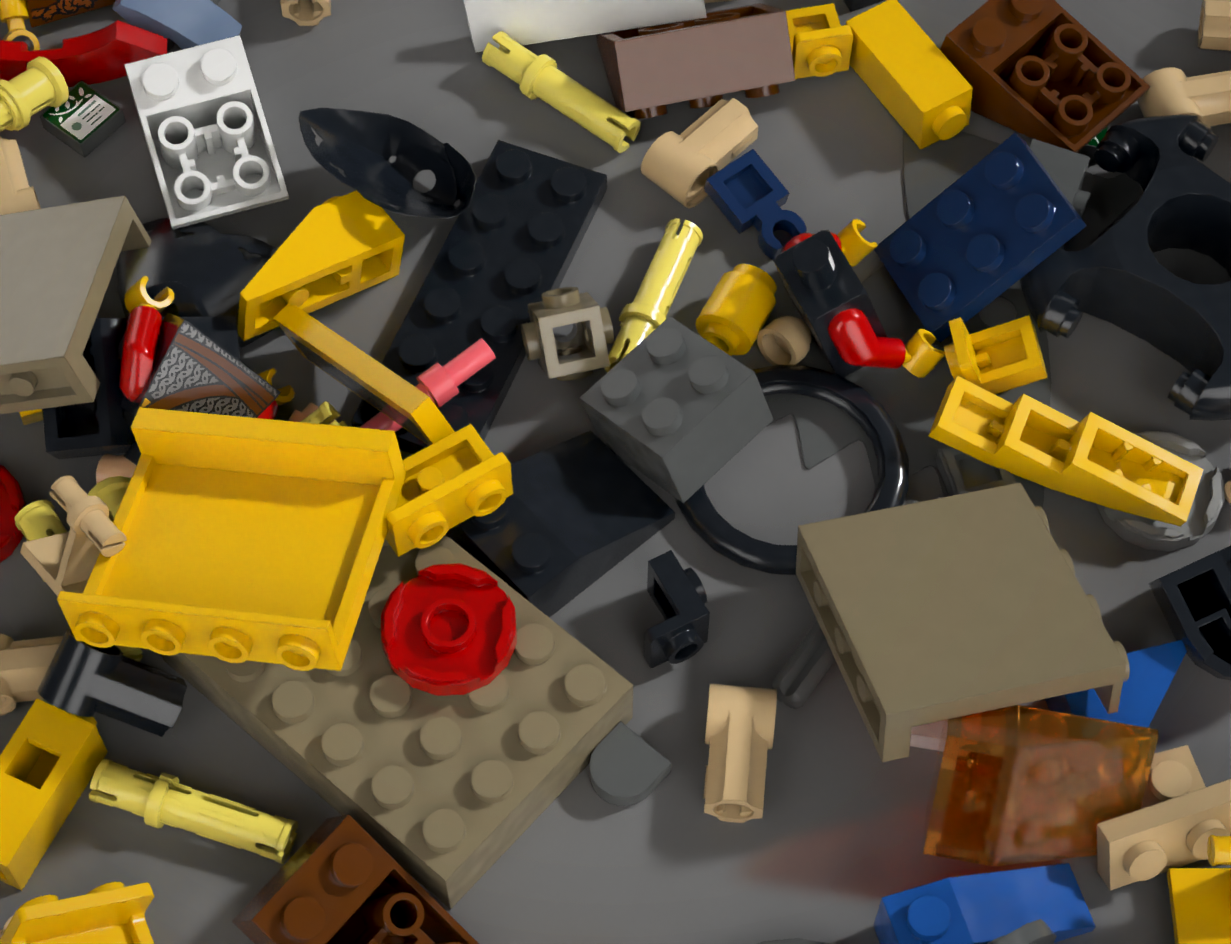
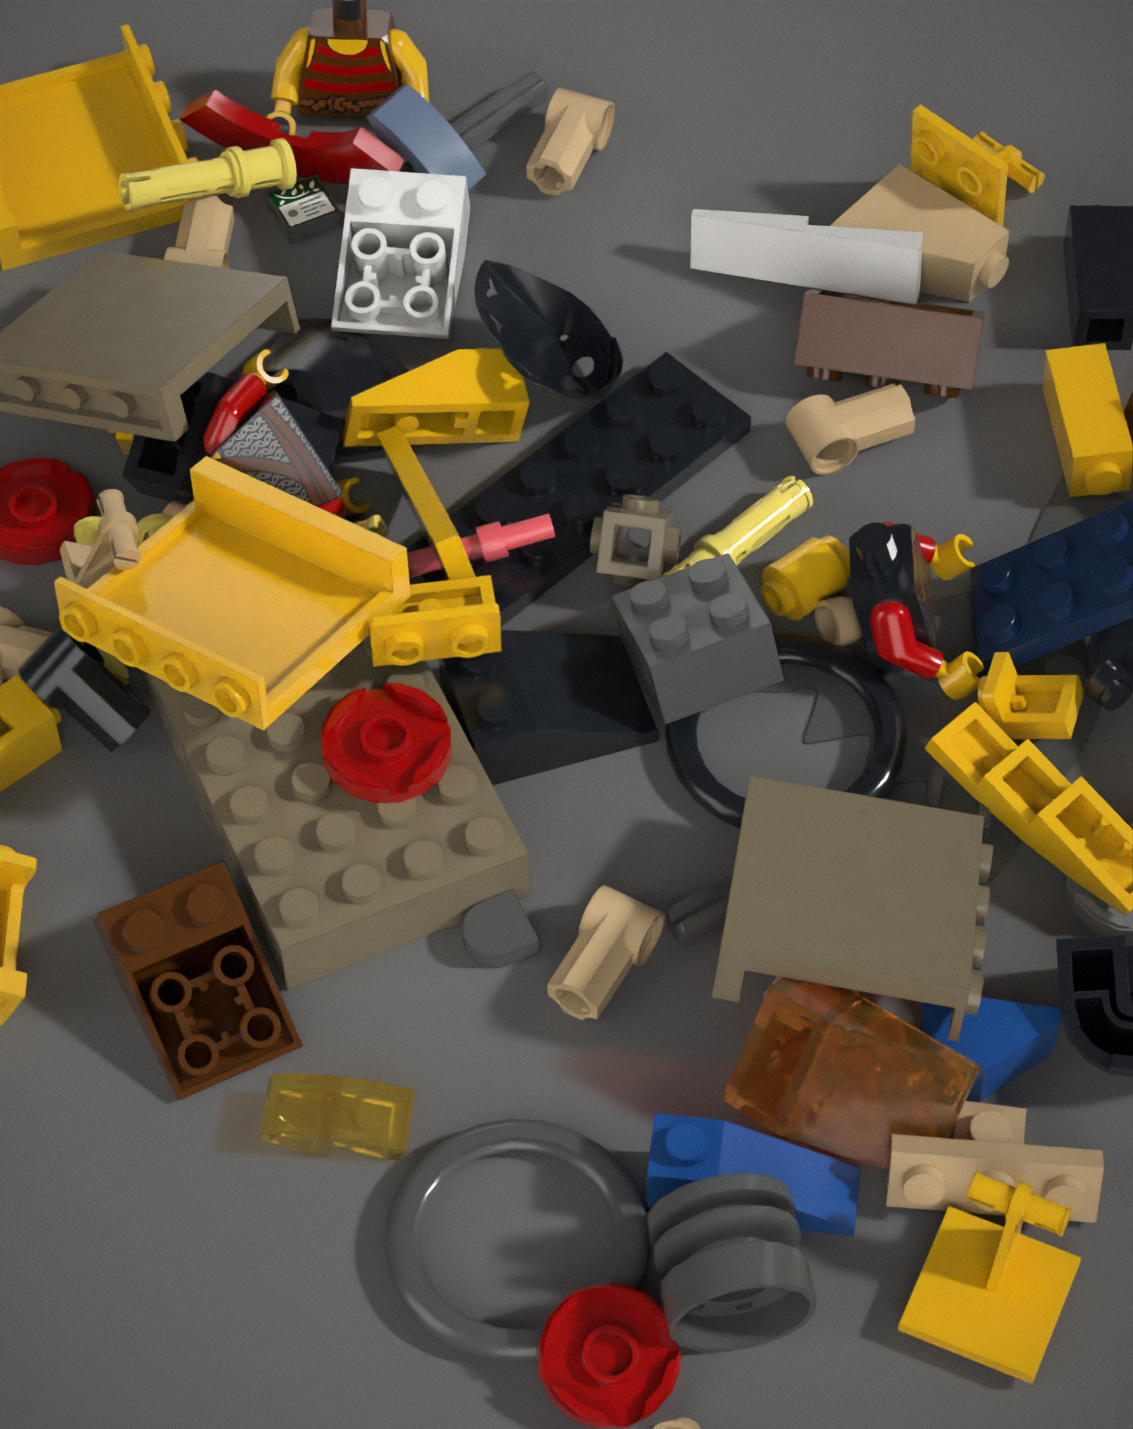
camera: 25 degrees right, 5 degrees down
(169, 803) = (87, 805): light yellow pin -> none
(542, 80) = (735, 310): light yellow pin -> none
(682, 604) = (609, 833): black bracket -> none
(753, 196) = (877, 481): dark blue plate -> none
(818, 41) = (1014, 362): yellow bracket -> none

